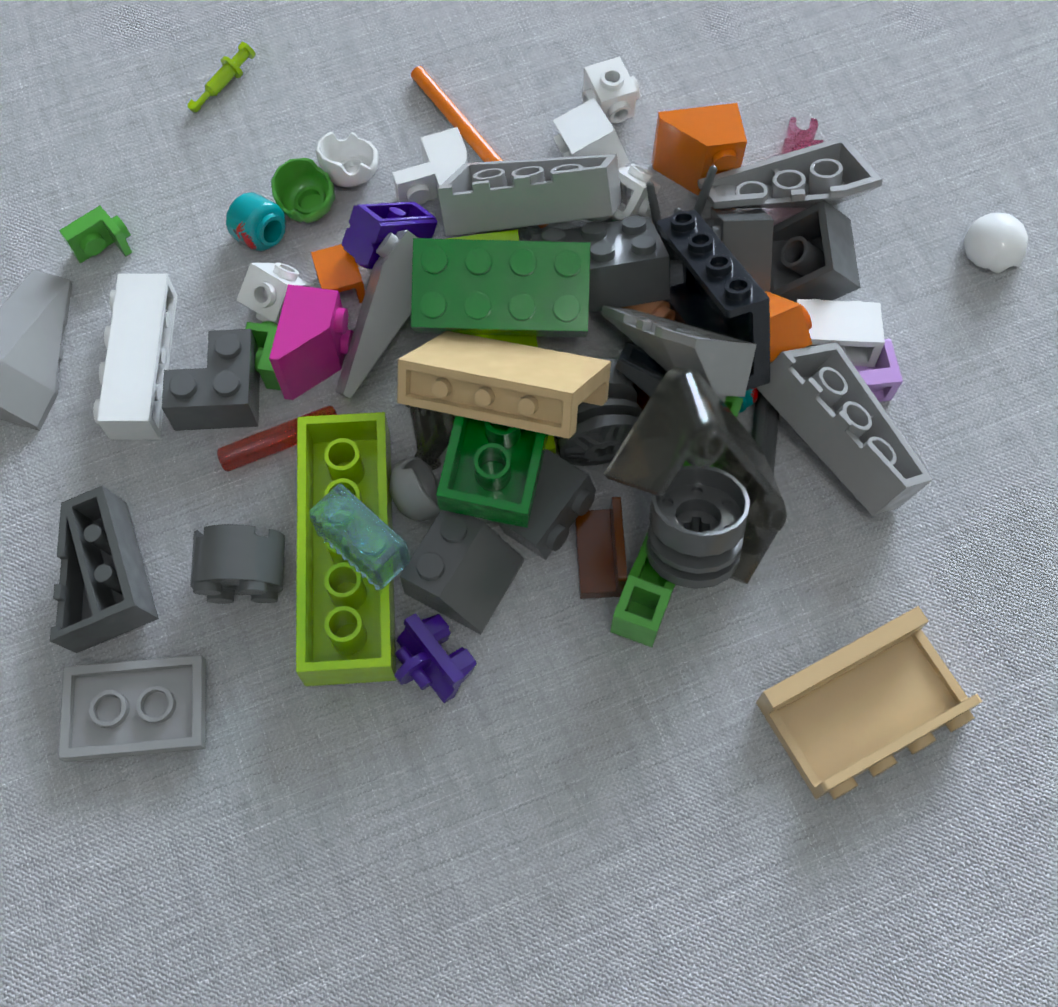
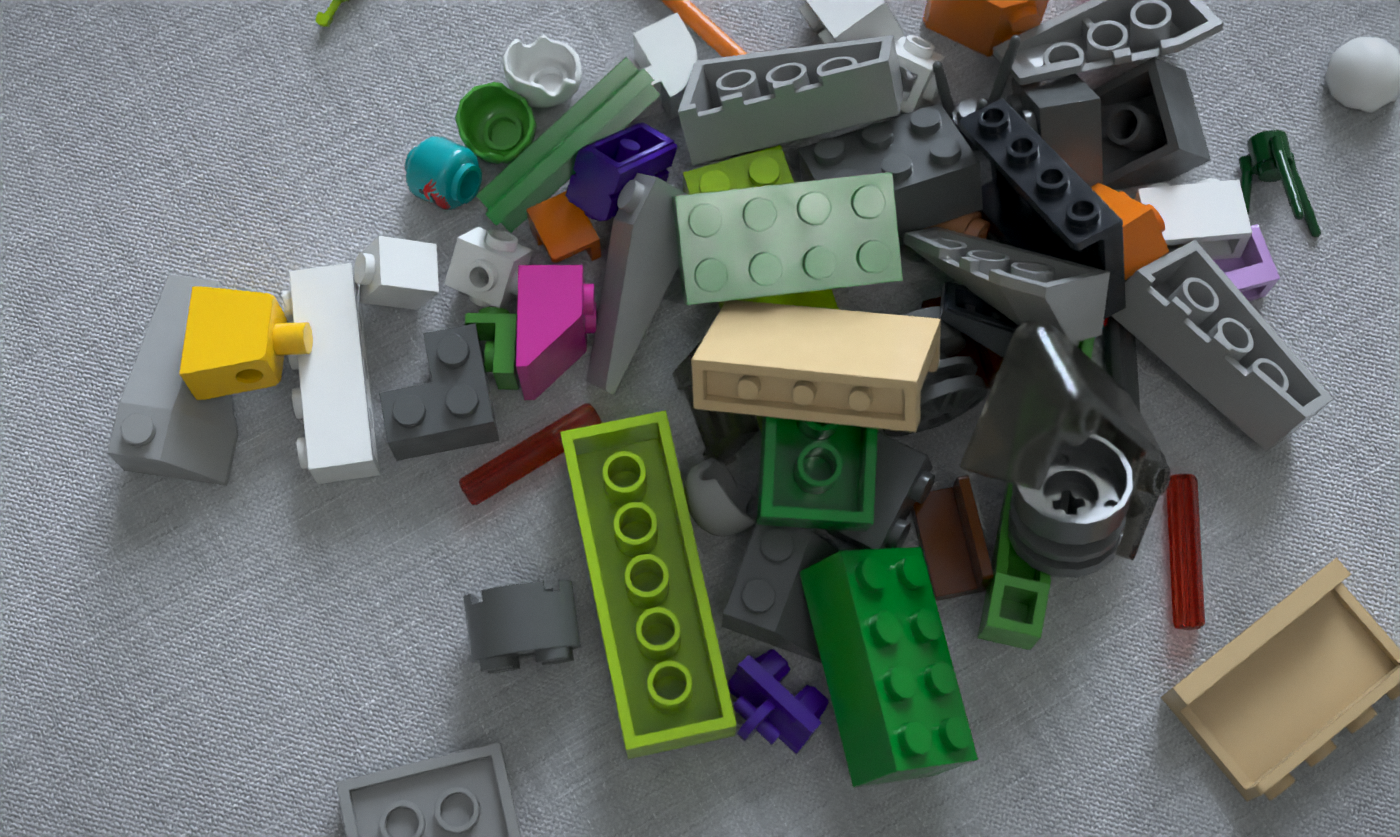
camera: 10 degrees left, 5 degrees up
(63, 318) = (237, 342): none -> yellow torso
(94, 233) = (238, 215): bright green bracket -> none
(101, 573) = (355, 659): dark grey wedge -> none
(202, 287) = (397, 273): none -> white brick
(360, 536) = (674, 576): clear light blue brick -> none
(389, 181) = (551, 157): none -> green fence
(527, 639) = (887, 665): none -> green brick
(794, 588) = (1185, 552): none -> clear red axle
(911, 297) = (1272, 162): none -> dark green plant

